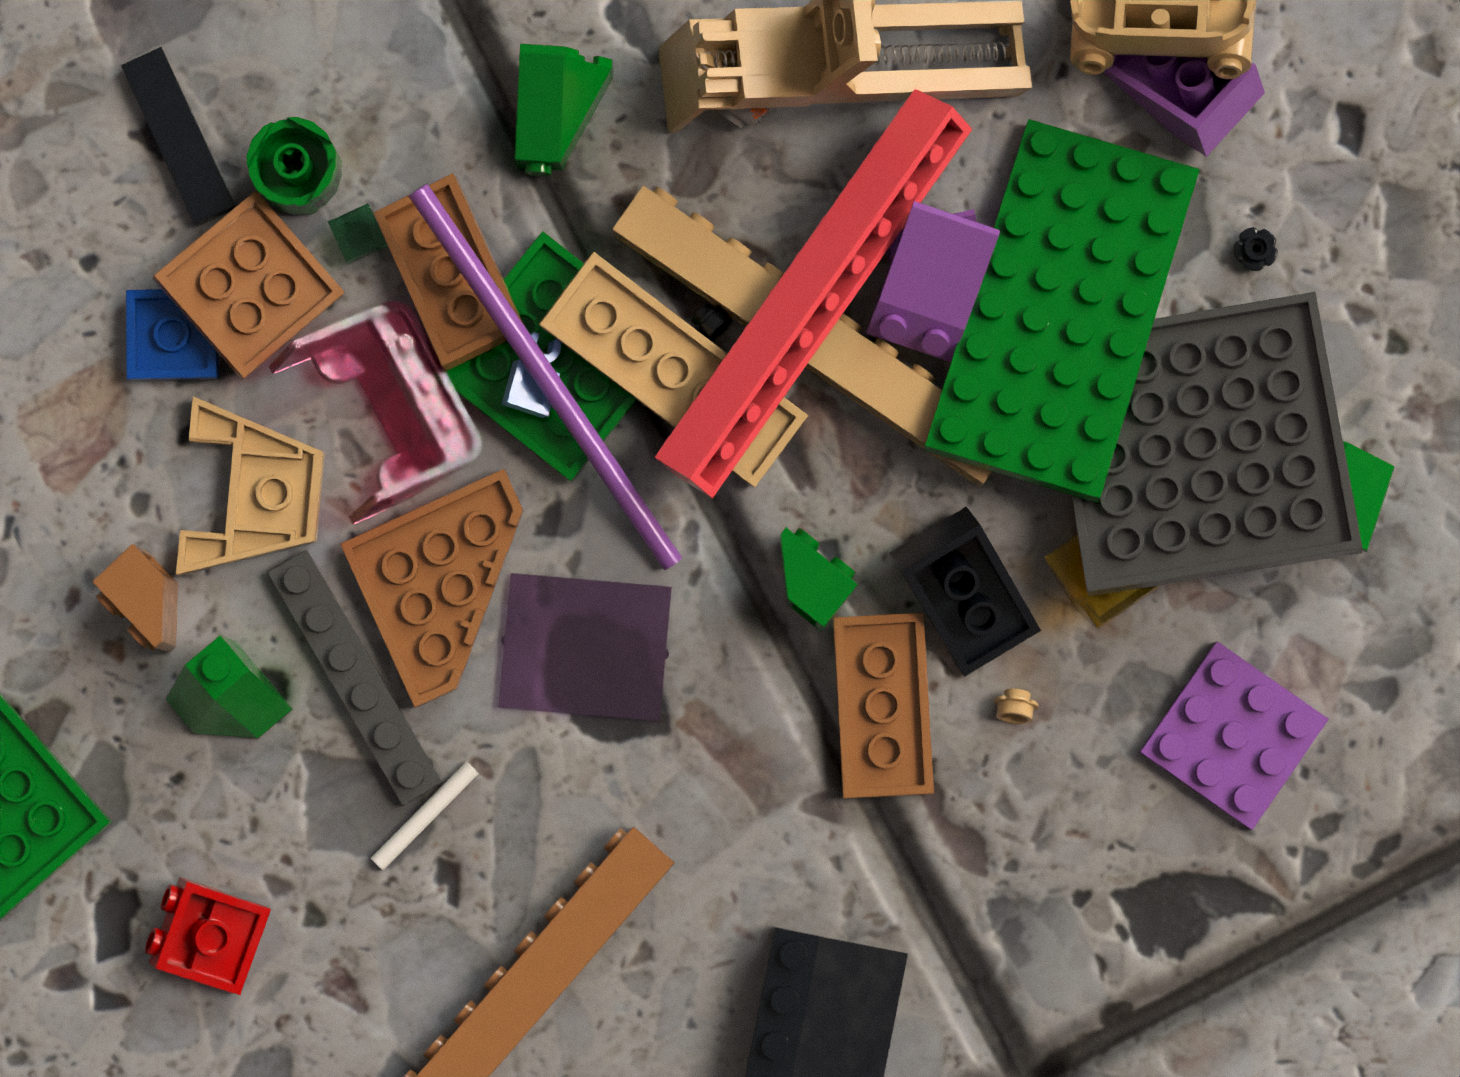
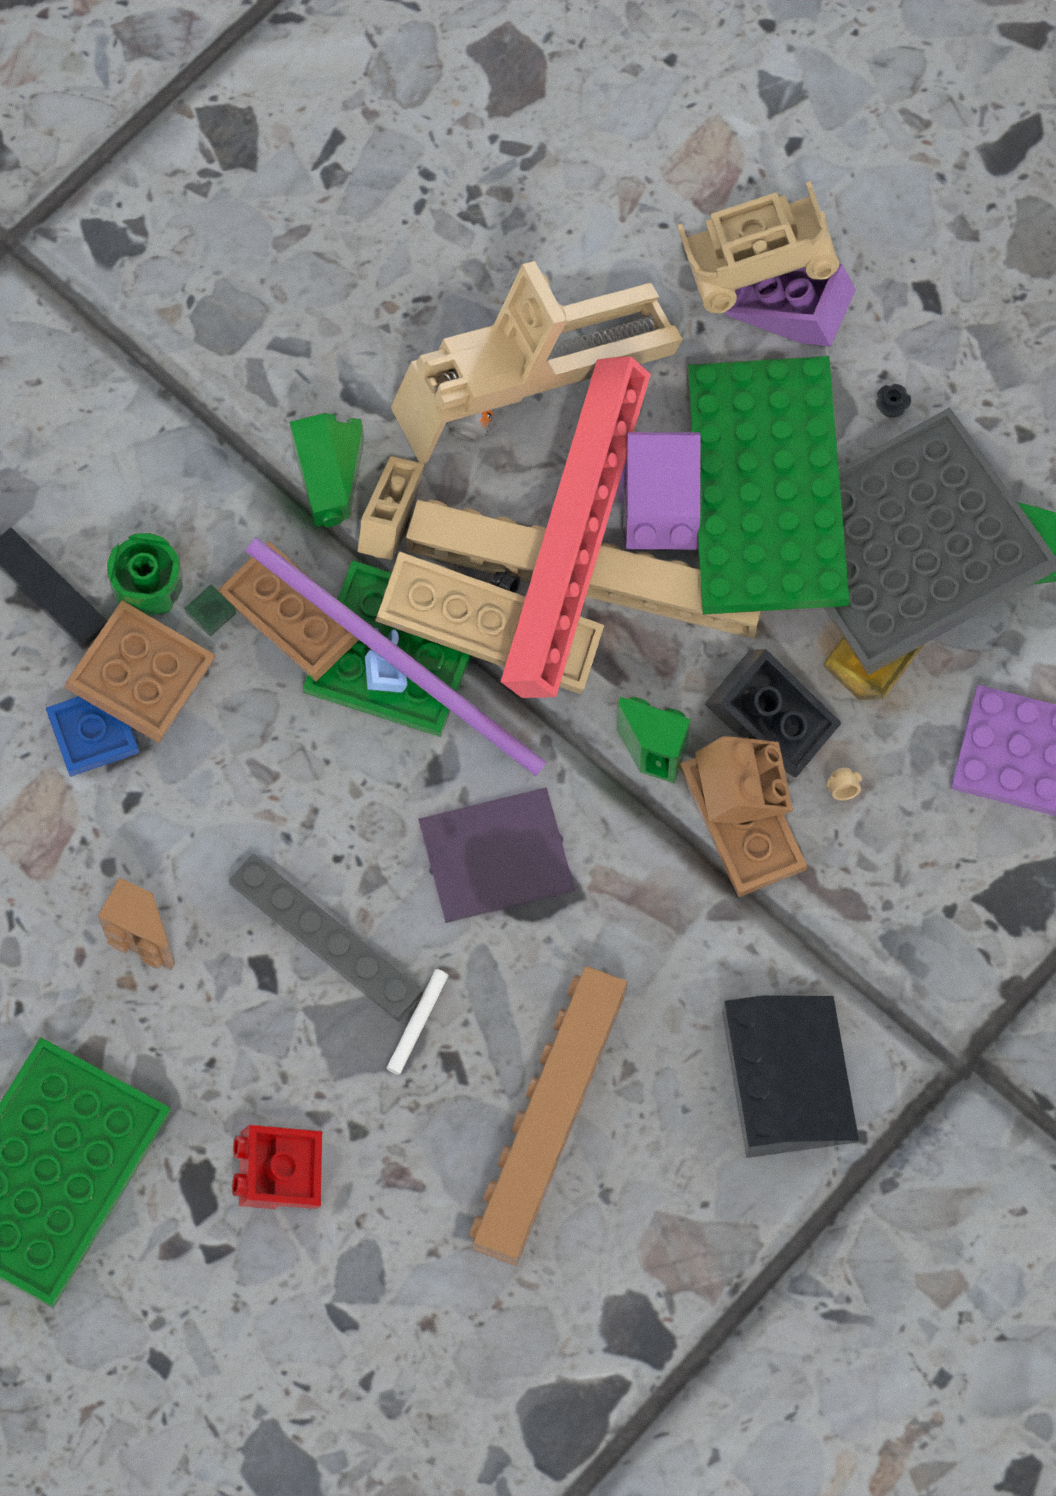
camera: 20 degrees left, 15 degrees down
(226, 693) = (228, 976): green slope -> none
(270, 492) = (210, 821): tan wing -> none
(407, 392) = (284, 705): clear pink windscreen -> none
(434, 578) = (361, 841): medium nougat plate -> none
(611, 178) = (389, 508): none -> tan slope
(896, 670) = (743, 780): none -> medium nougat slope

